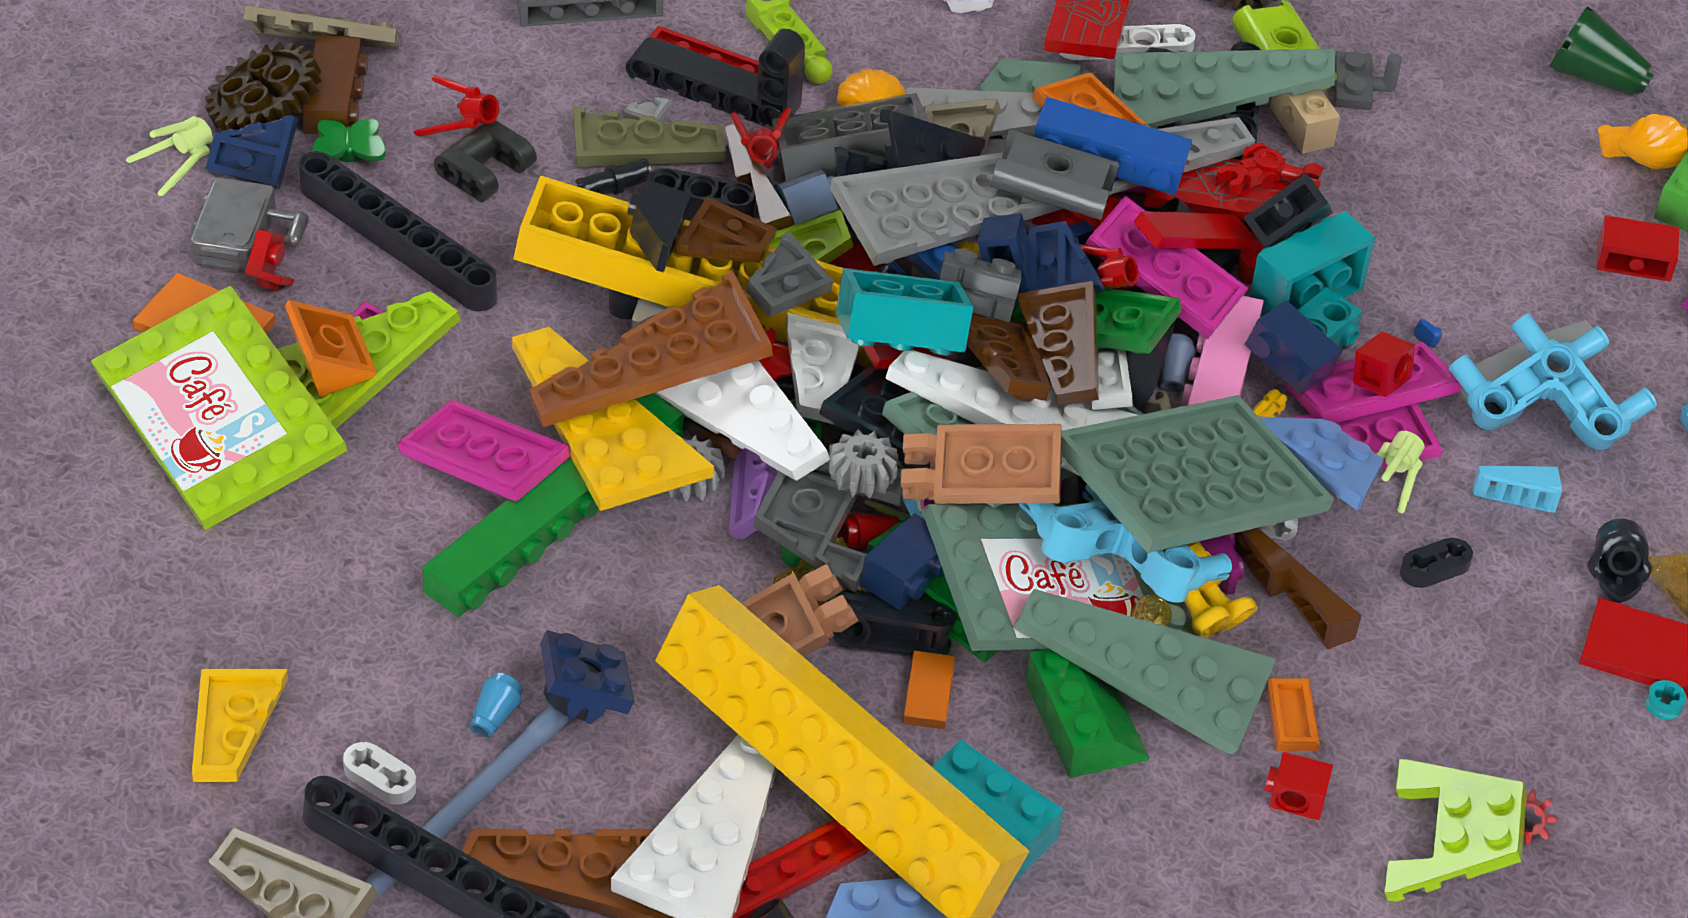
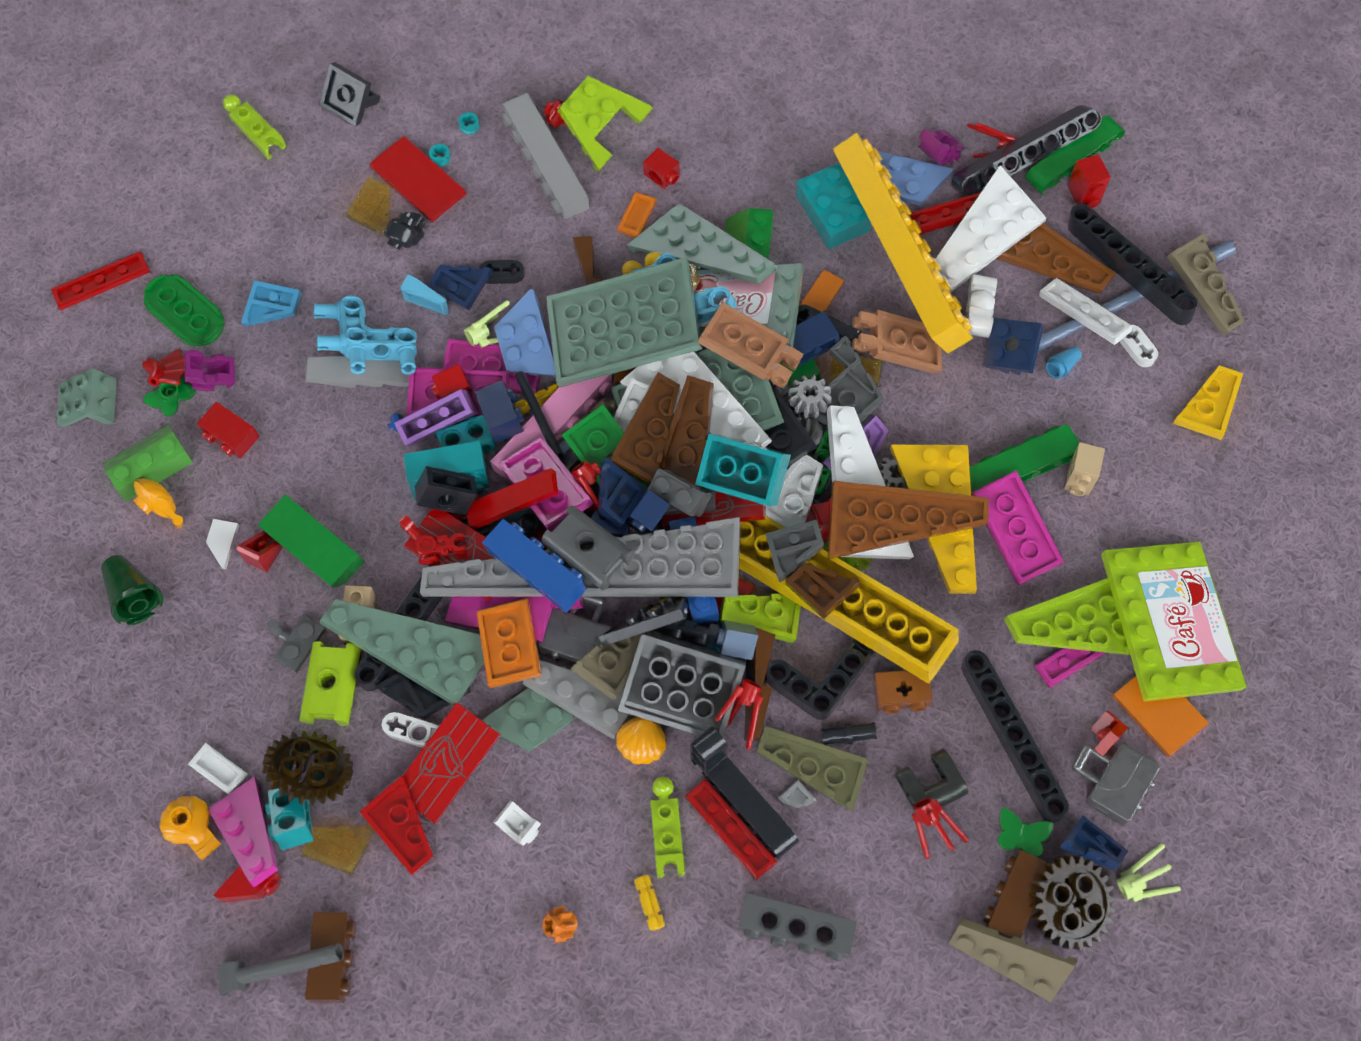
camera: 150 degrees left, 20 degrees up
(330, 347) = (1099, 616): orange slope -> none
(409, 535) = (1084, 469): none -> tan brick
(487, 778) = (1085, 311): none -> white tile
(658, 220) = (863, 603): black slope -> none
(665, 736) = (981, 304): none -> white piece
(1238, 364) = (538, 413): none -> black bar
(1387, 308) = (436, 417): none -> medium lavender brick
(1424, 168) = (311, 542): none -> green brick
(1479, 140) = (260, 550): none -> red slope
(1483, 517) = (460, 283): none -> dark blue wing
(1499, 743) = (546, 157): none -> light grey brick
(1538, 146) = (222, 539): none -> white tile
(1654, 773) = (466, 118): none -> teal bush

